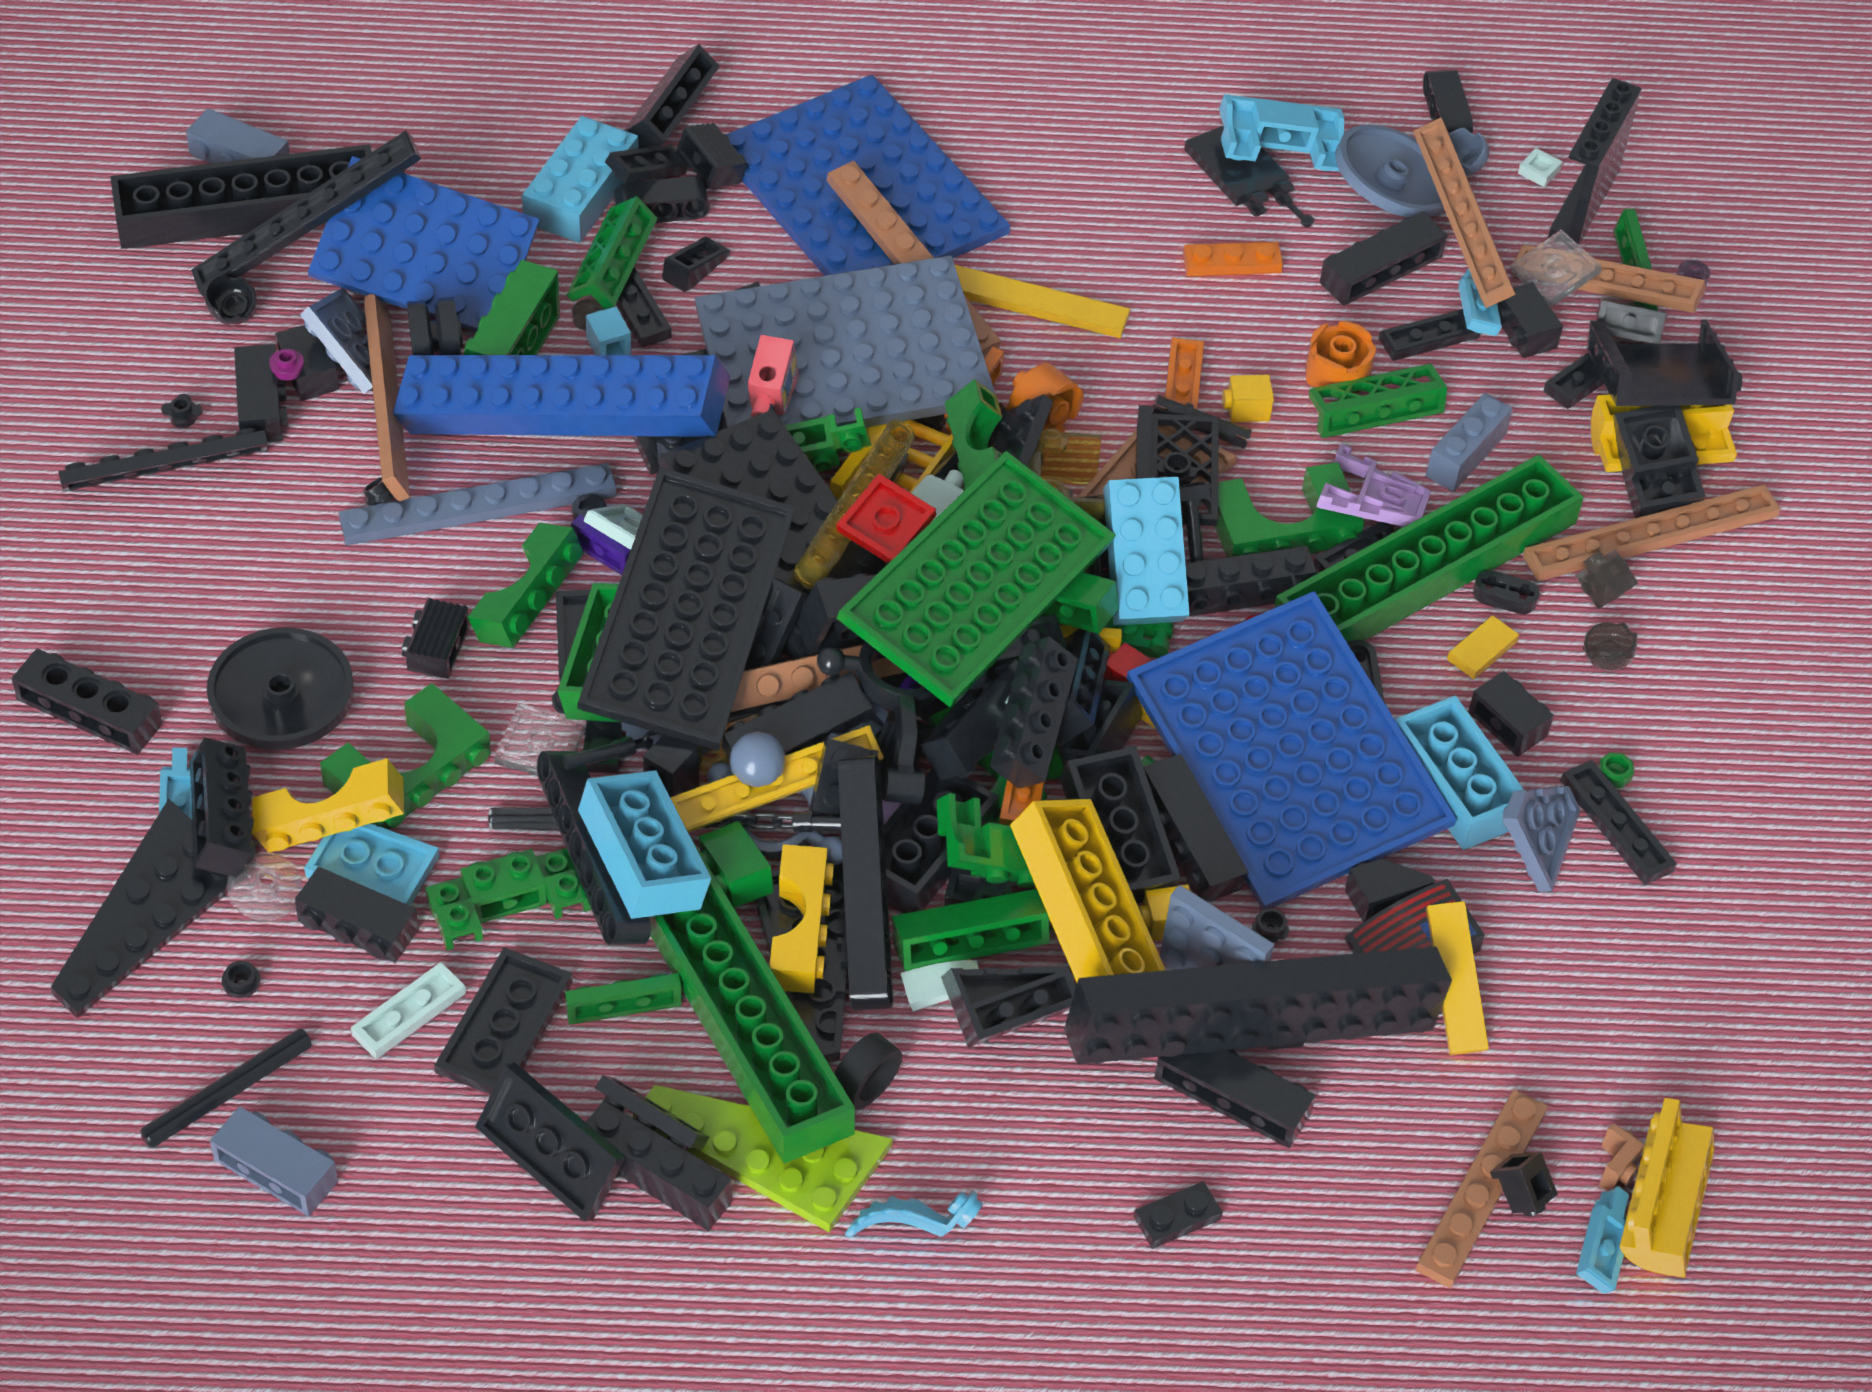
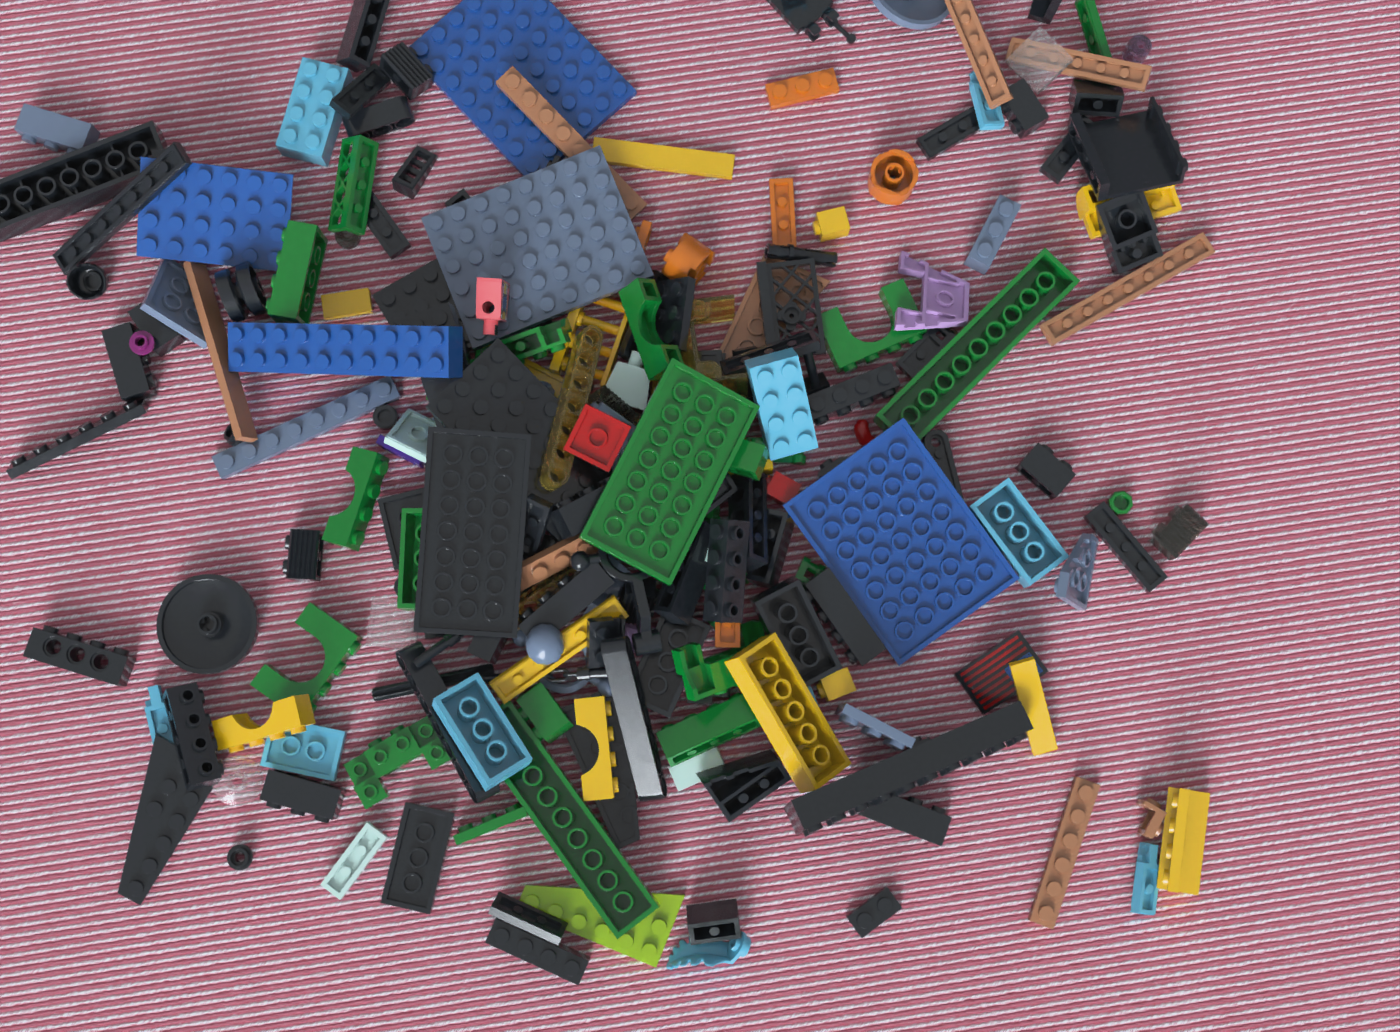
camera: 10 degrees left, 30 degrees up
(182, 411) = (84, 391): black plate -> none
(225, 1088) = (250, 941): black axle -> none
(274, 1160) = (295, 993): sand blue brick -> none
(550, 1141) = (467, 951): black plate -> none
(608, 333) = (365, 257): medium azure brick -> none
(868, 1069) = (660, 856): black tyre -> none
(930, 1170) = (713, 921): none -> black brick
(1271, 918) = (904, 685): black plate -> none
(1381, 884) = (976, 635): black slope -> none
(1382, 258) = (911, 72): black brick -> none
(1383, 404) = (924, 215): green fence -> none
(1483, 647) = (1019, 413): yellow tile -> none
(1506, 592) = (1030, 367): black beam -> none
(1525, 1182) = (1092, 852): black brick -> none
(1605, 577) = (1100, 342): clear smoke brick -> none
(1610, 646) = (1108, 399): clear smoke hair -> none
(1697, 814) = (1178, 531): none -> clear smoke brick

